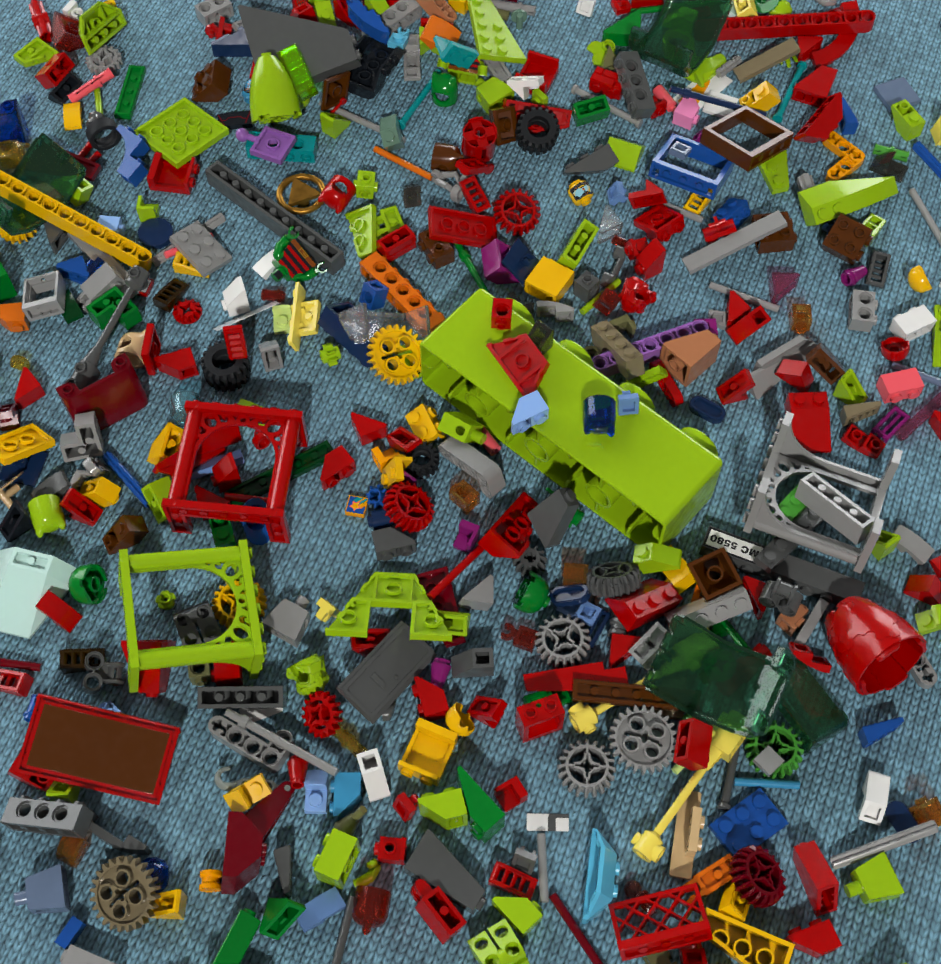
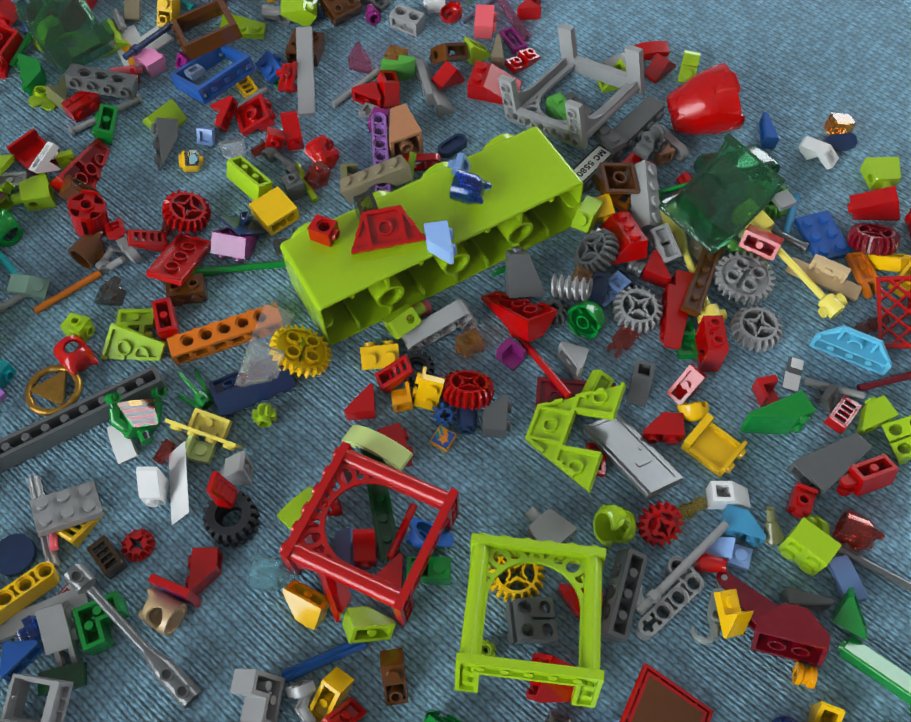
camera: 70 degrees left, 0 degrees up
(109, 397) = (221, 657): dark red windscreen -> none
(202, 678) = (567, 635): olive brick -> none
(323, 450) = (379, 445): none -> yellowish green slope
(326, 610) = (548, 493): light yellow tile -> none
(331, 299) = (202, 399): none -> green plant
(374, 294) = (214, 349): blue brick -> none
(405, 806) = (762, 477): red tile -> none
(439, 671) = (639, 414): magenta cone -> none
(444, 808) = (776, 440): lime slope -> none
(540, 118) = (104, 179): black tyre -> none
(553, 563) = (571, 288): none -> light grey piece
(561, 311) = (307, 214): light grey slope -> none
(736, 387) = (443, 117): red slope -> none
(778, 323) = (404, 67): none -> bright green slope
(805, 655) = (699, 149): red slope -> none
(834, 507) = (593, 80): light grey brick -> none
(884, 844) = (859, 155): light grey axle -> none

